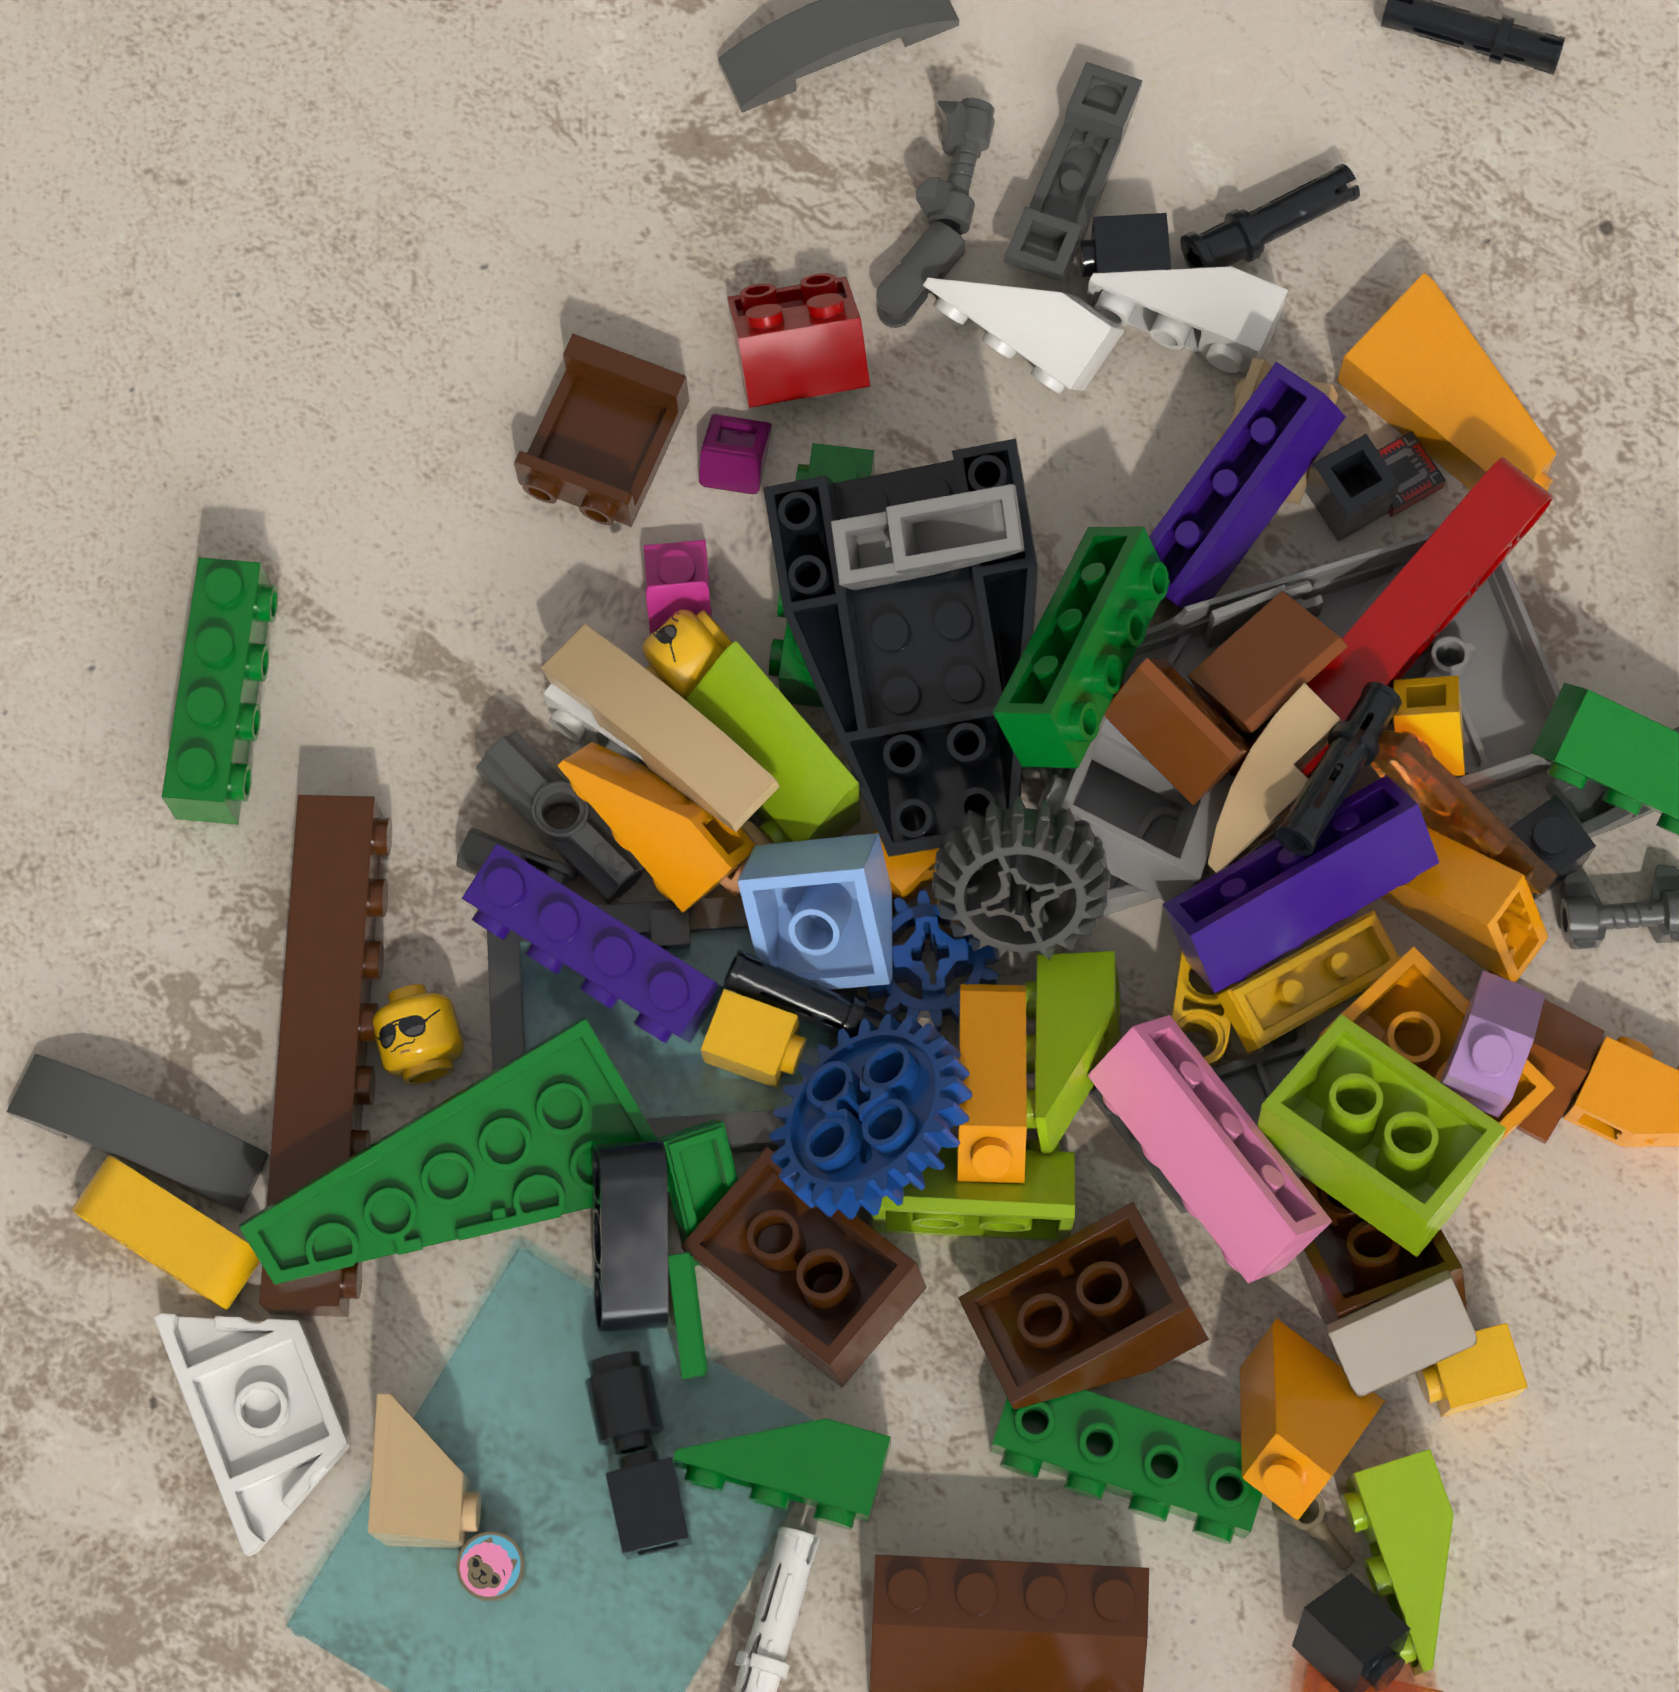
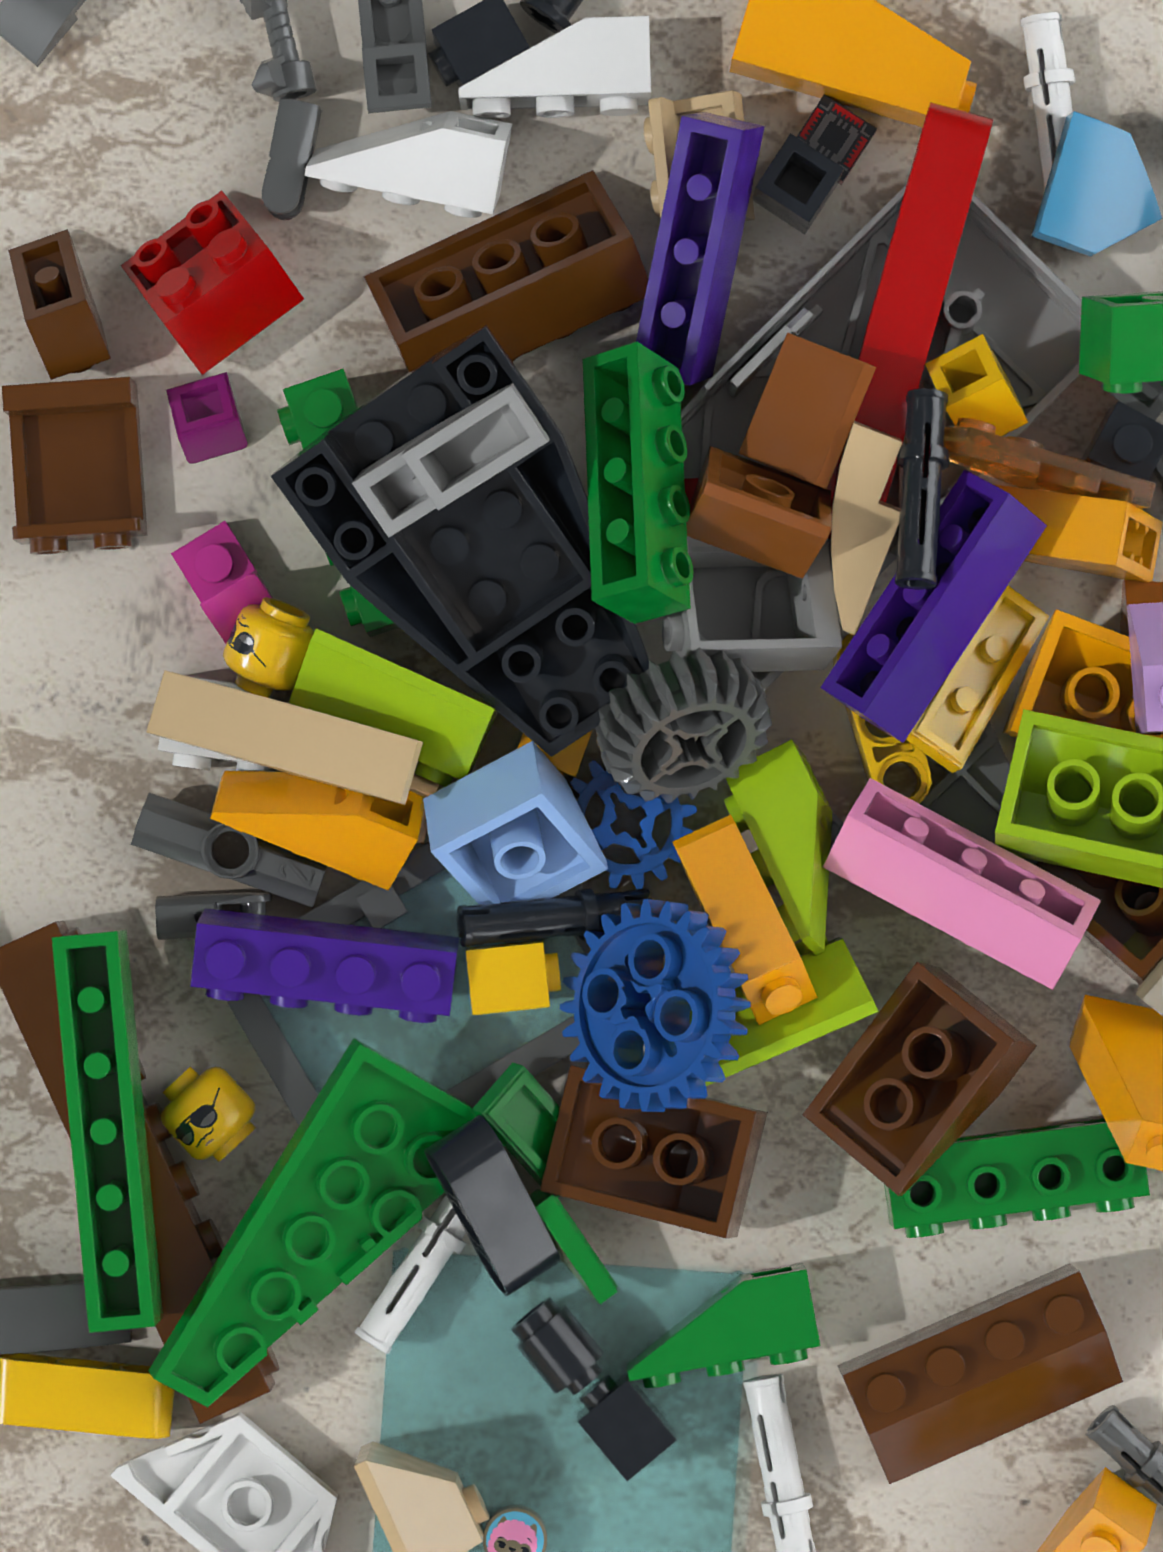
camera: 30 degrees left, 15 degrees up
(319, 987) = (107, 1131): none -> green brick
(524, 1275) = (414, 1277): none -> white pin
(656, 301) = (58, 305): none -> reddish brown slope
(1076, 457) = (521, 273): none -> reddish brown slope
(1618, 514) = (1048, 81): none -> white pin
(1619, 616) = (1095, 189): none -> dark azure slope

